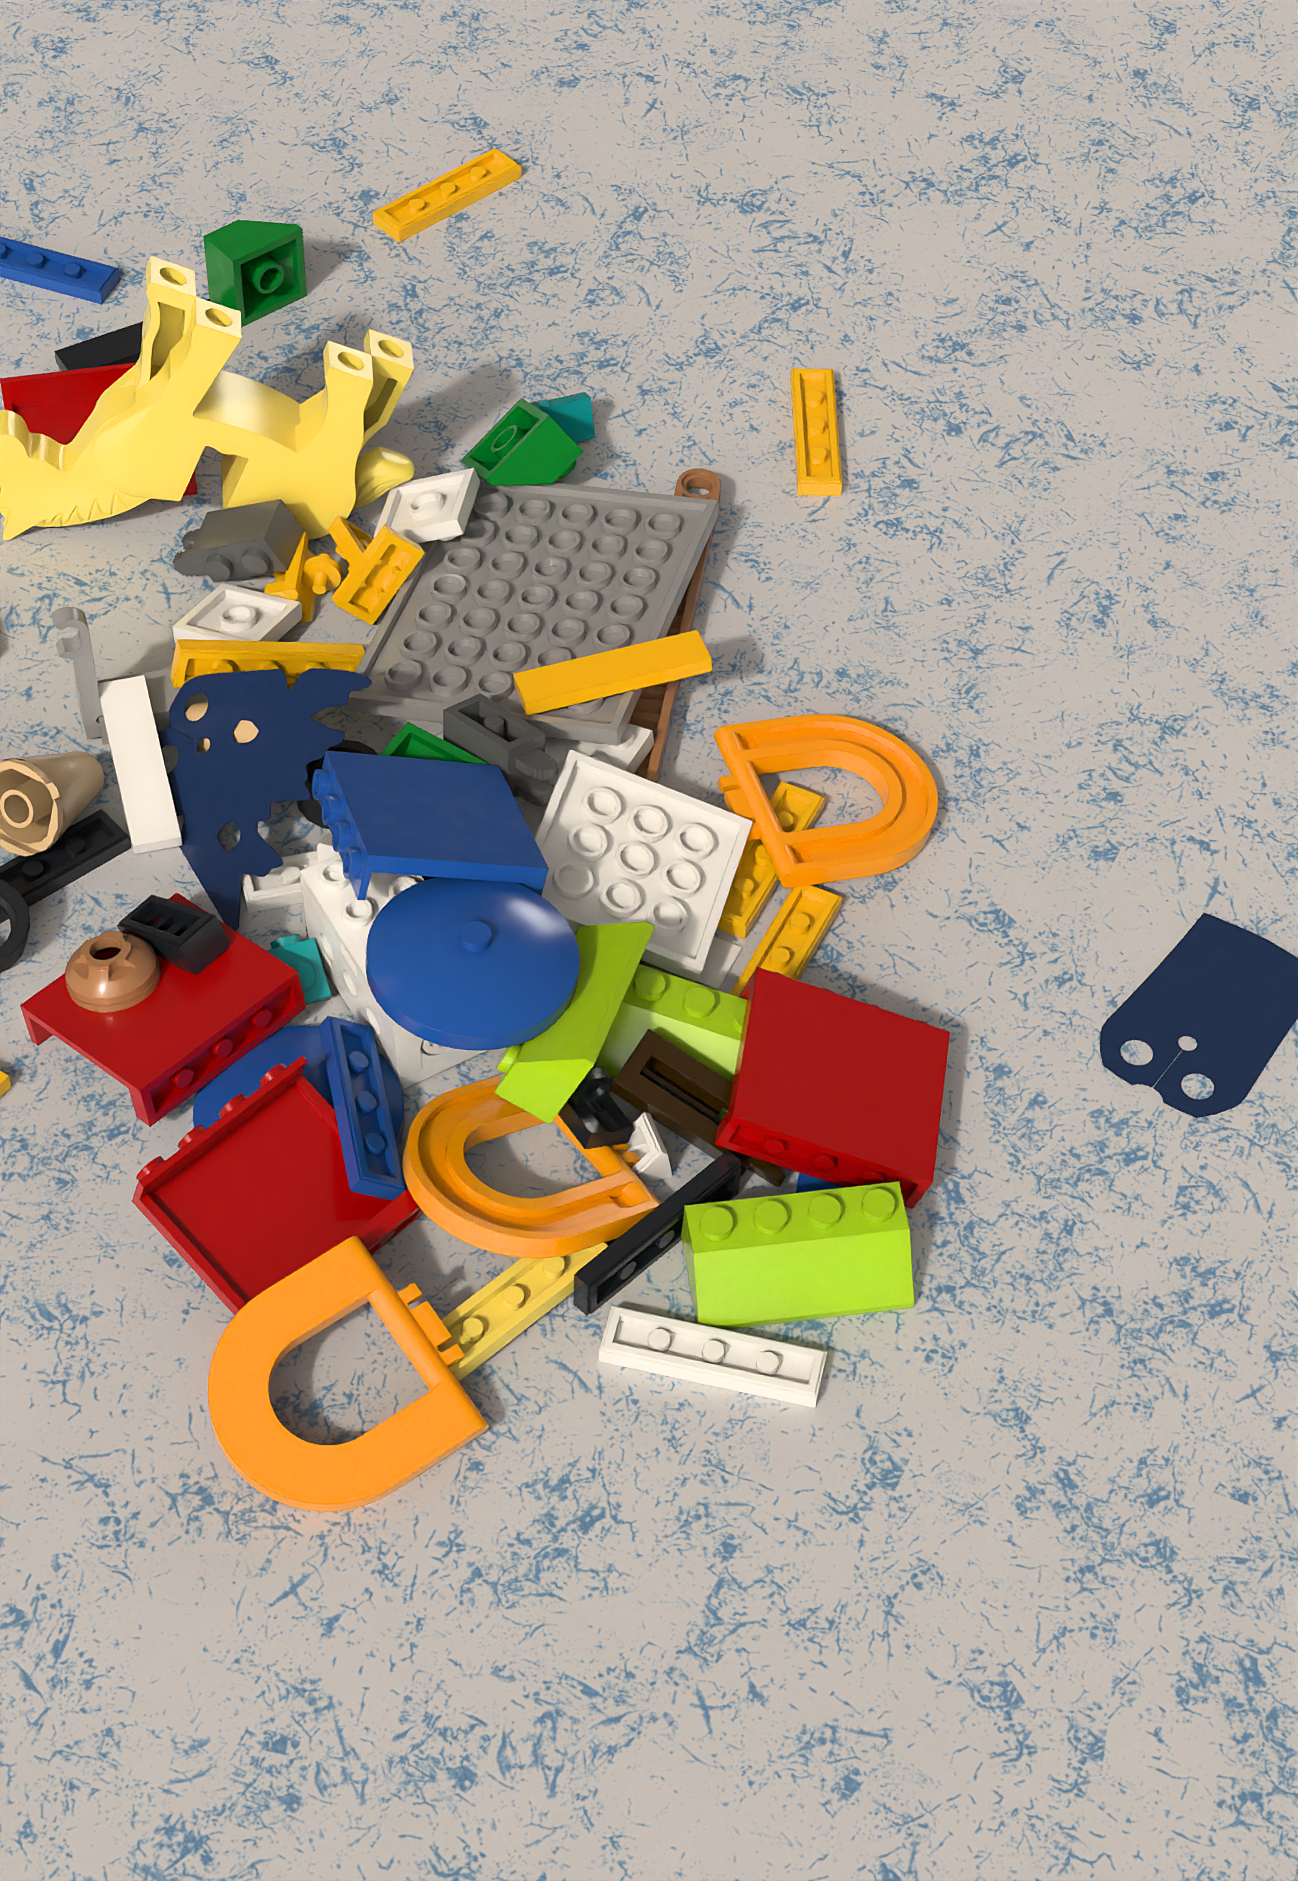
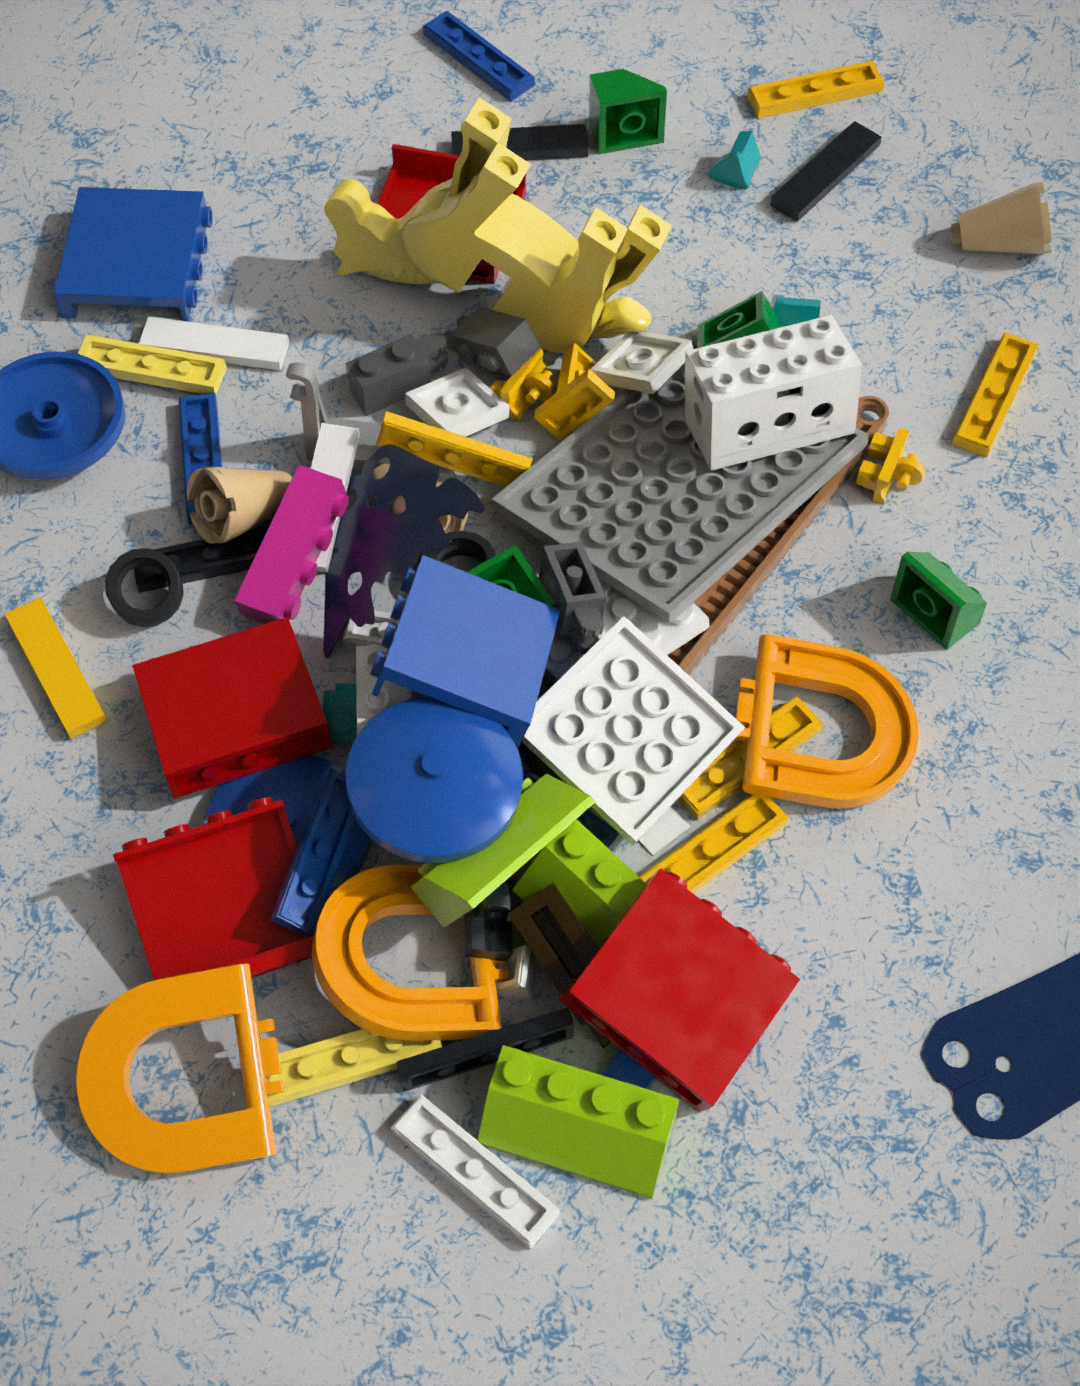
camera: 30 degrees right, 10 degrees up
(112, 982) = (203, 677): medium nougat piece -> none
(137, 818) = (292, 546): none -> dark pink brick
(142, 612) = (395, 369): none -> dark grey hinge
(181, 935) = (262, 655): black slope -> none
(409, 292) = (738, 165): none -> teal tile
(507, 271) = (825, 171): none -> black tile
(600, 483) = (771, 392): none -> white piece
(612, 672) = (693, 561): yellow tile -> none
(739, 262) = (1006, 224): none -> tan cone
(748, 532) = (890, 450): none -> yellow hips
(873, 639) = (936, 598): none -> green slope

